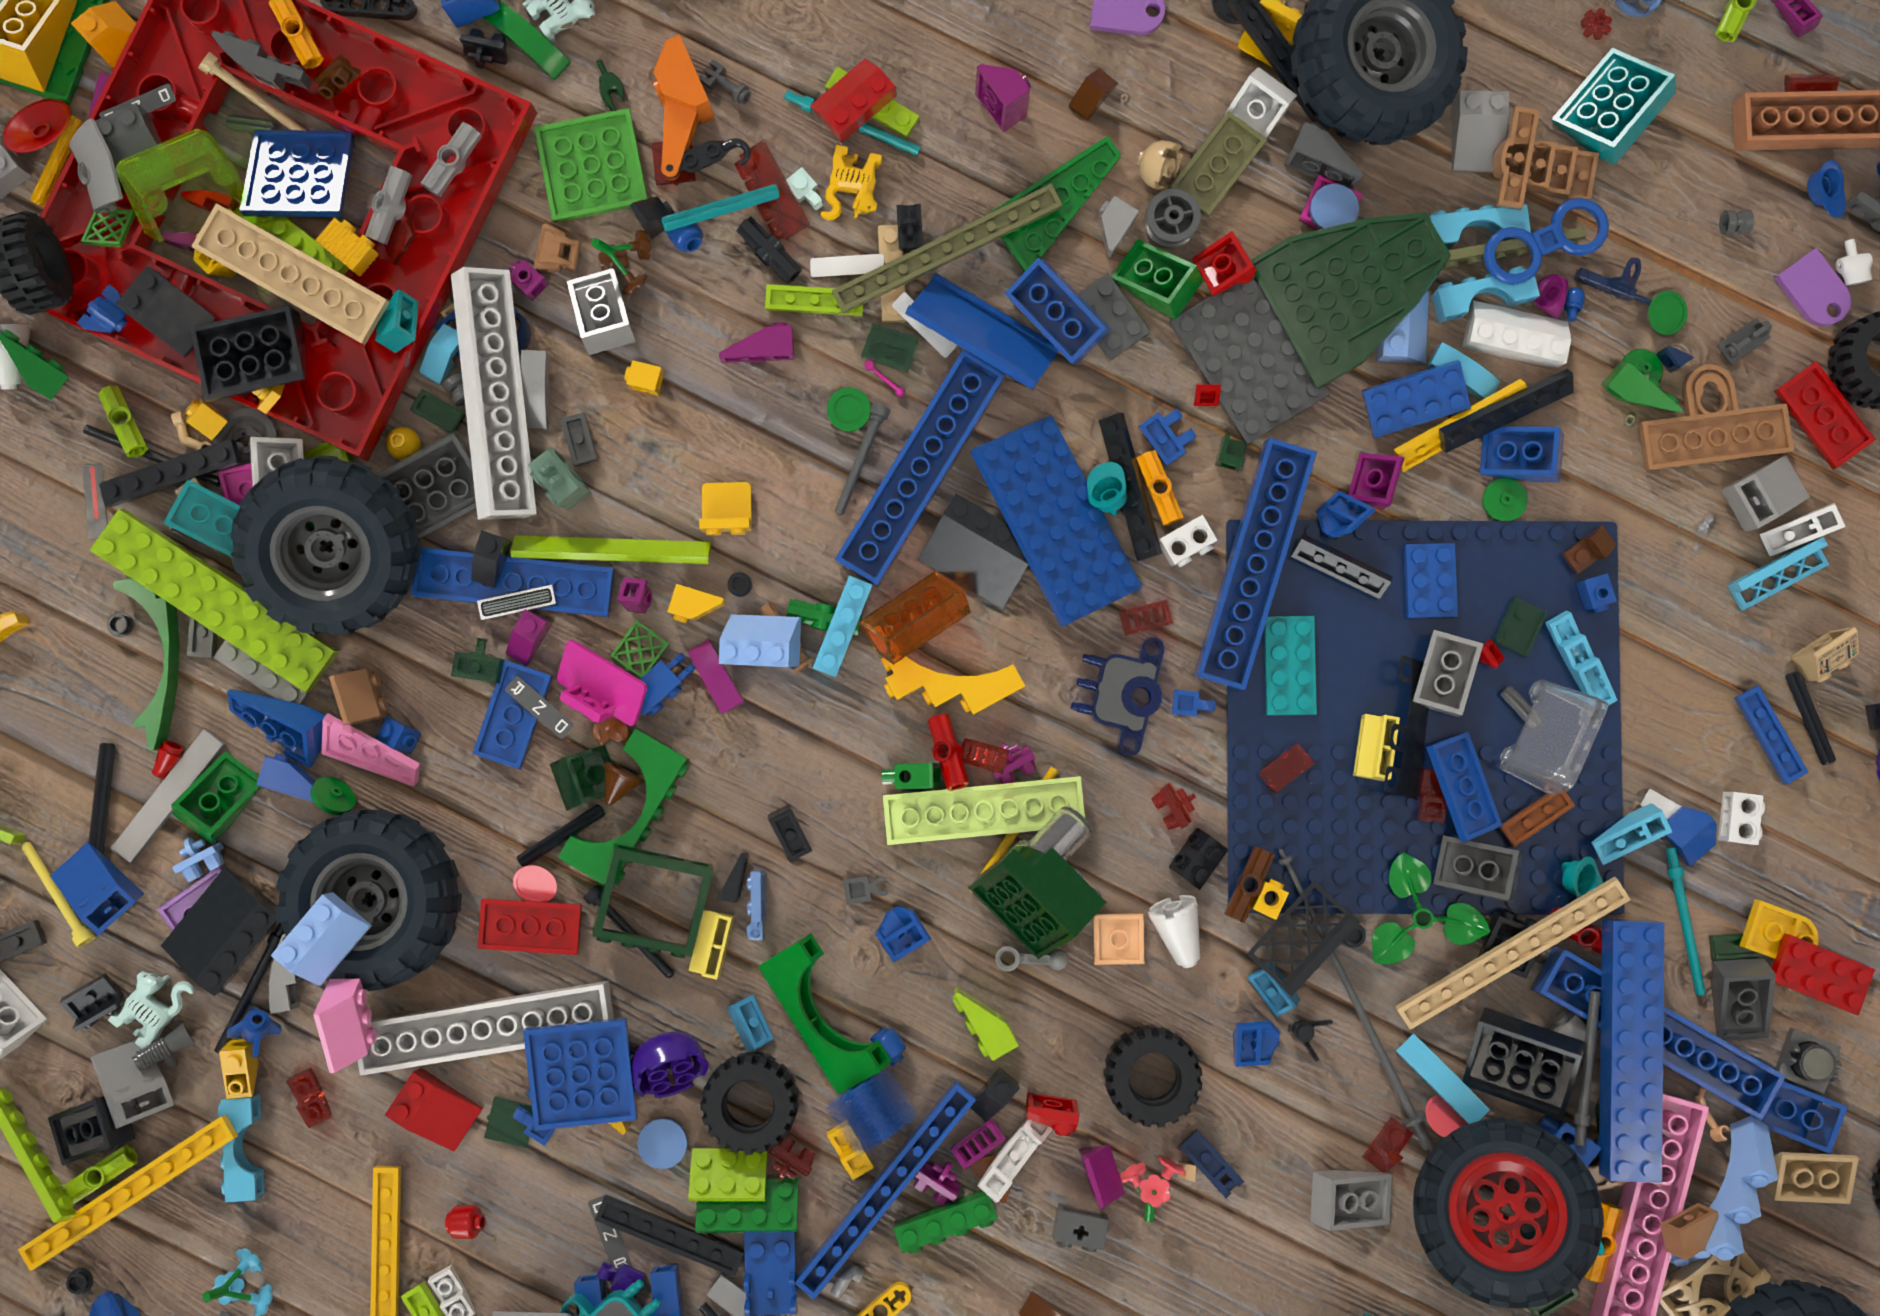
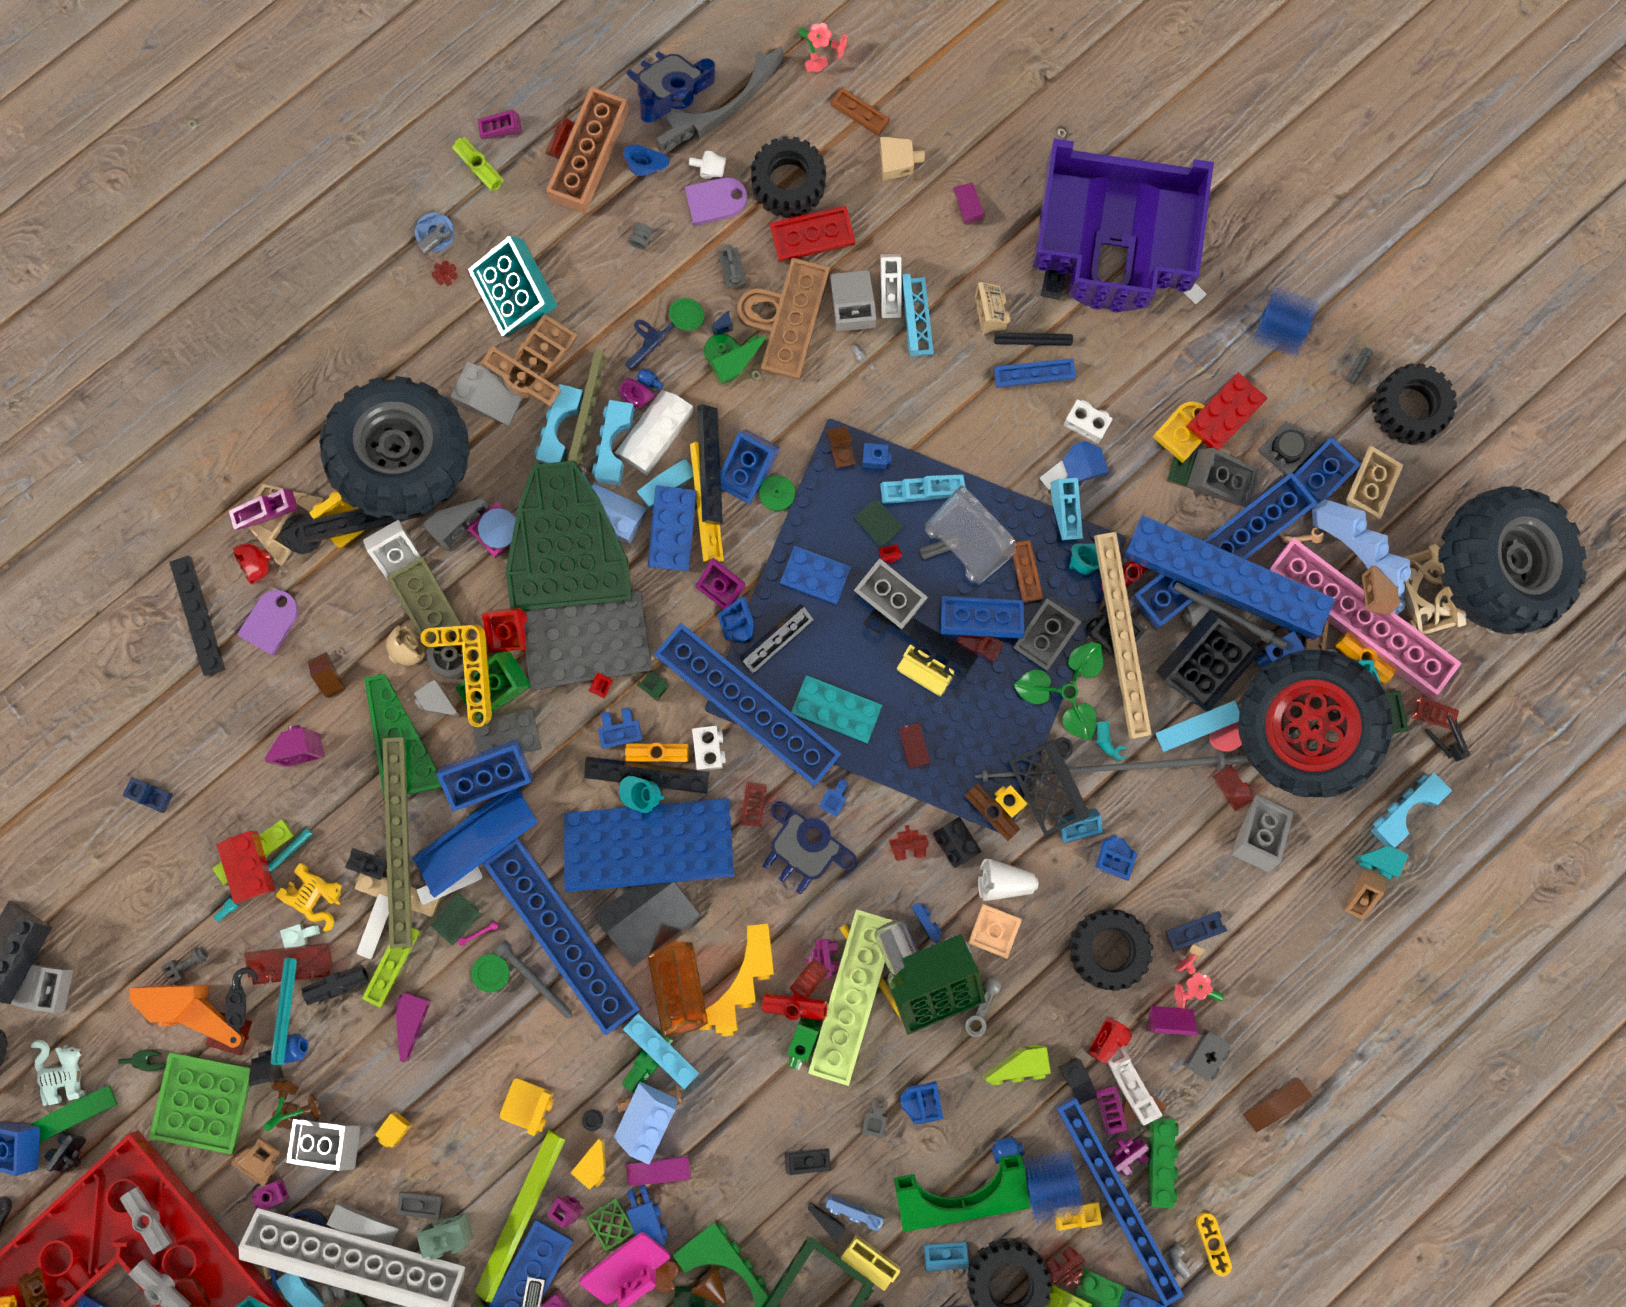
camera: 65 degrees left, 5 degrees down
(1104, 851) = (922, 914): none -> blue plate
(1171, 242) = (470, 665): none -> yellow beam
(1305, 1032) = (1122, 816): black plant -> none
(1379, 980) = (1104, 741): none -> teal piece
(1546, 241) = (593, 382): blue bar -> none
(1676, 873) = (1110, 486): teal bar -> none

